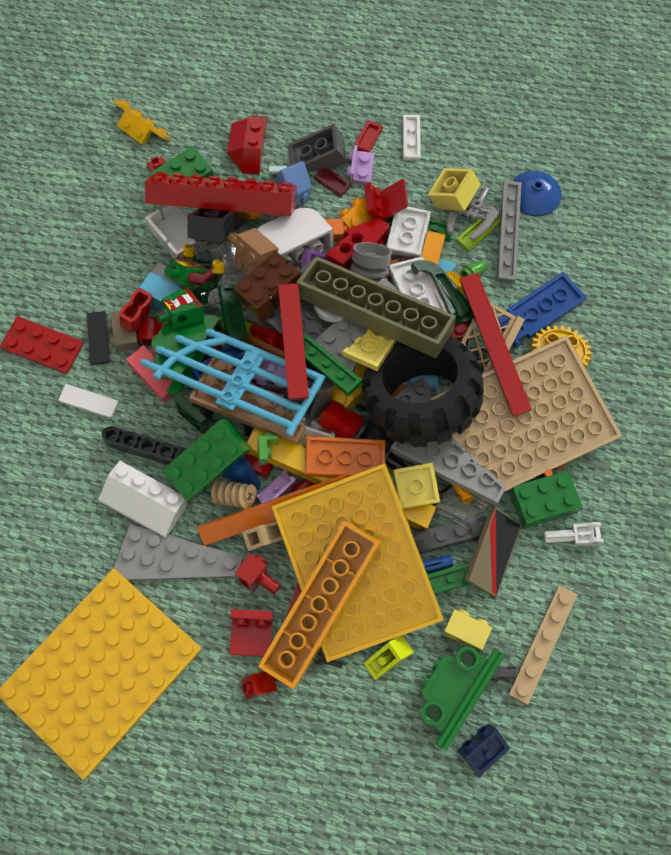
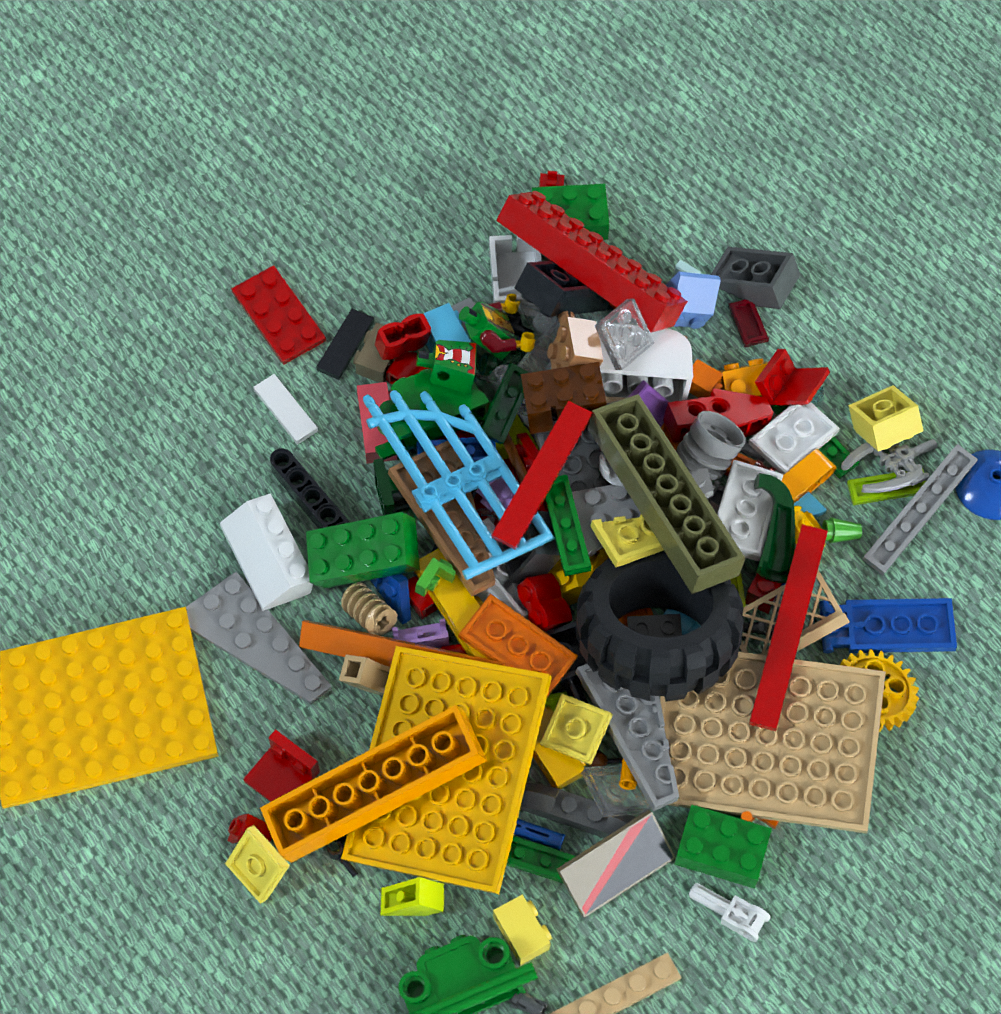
camera: 35 degrees right, 5 degrees down
(136, 125) = (562, 122): yellow bracket -> none
(247, 143) = (678, 217): red wedge -> none
(255, 573) = (328, 711): red brick -> none
(277, 225) = (624, 334): none -> clear plate
(279, 703) = (257, 864): none -> light yellow tile
(361, 167) = (794, 324): lavender bracket -> none
(368, 136) = (832, 294): red tile -> none
(411, 137) = (886, 325): white tile -> none

